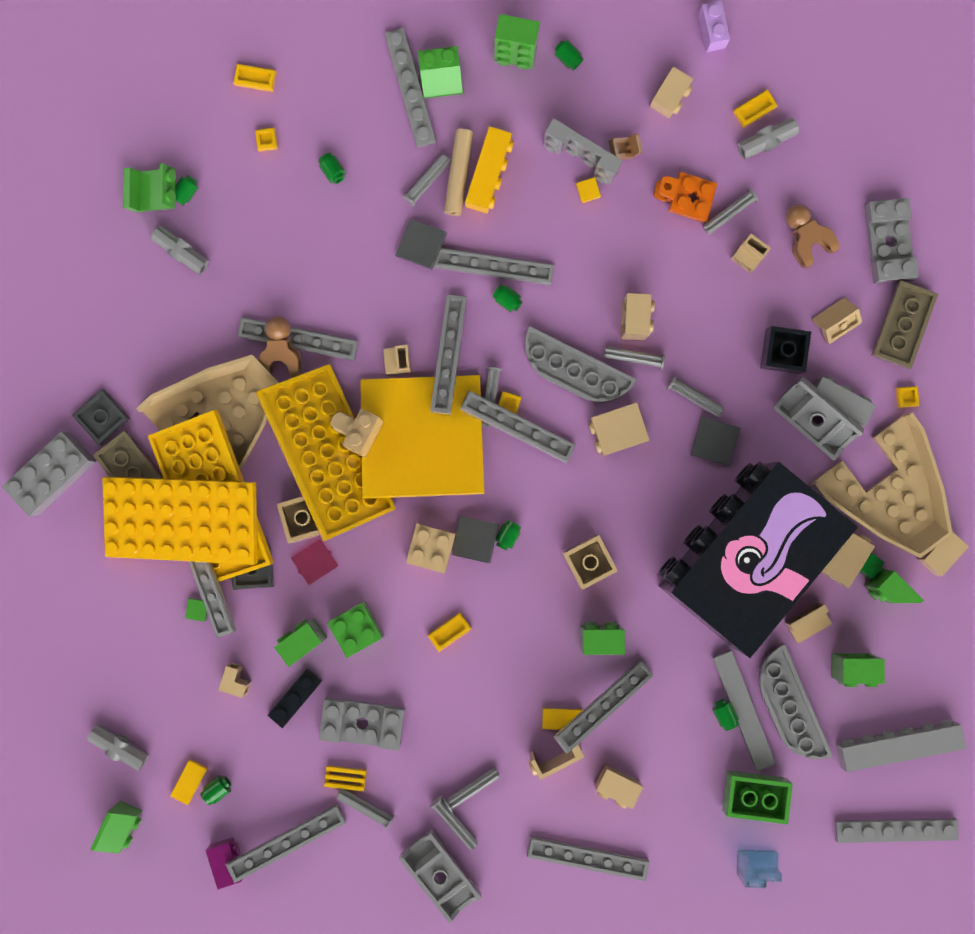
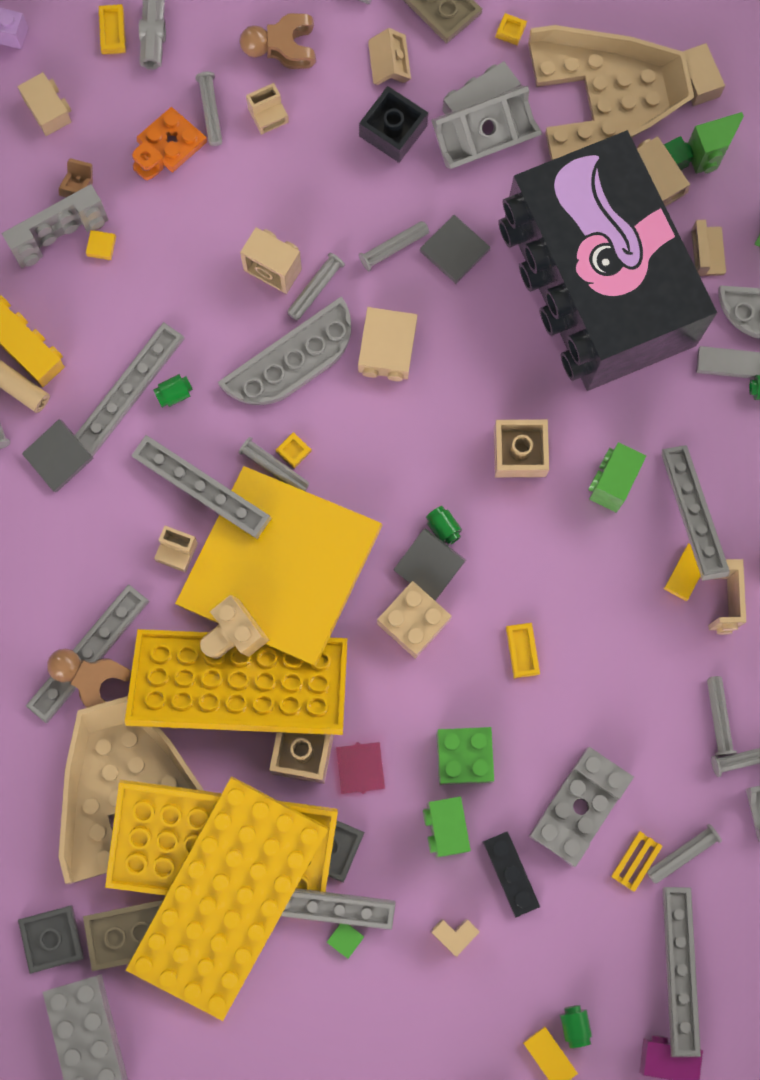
camera: 65 degrees left, 10 degrees down
(517, 427) = (324, 452): light grey tile -> none

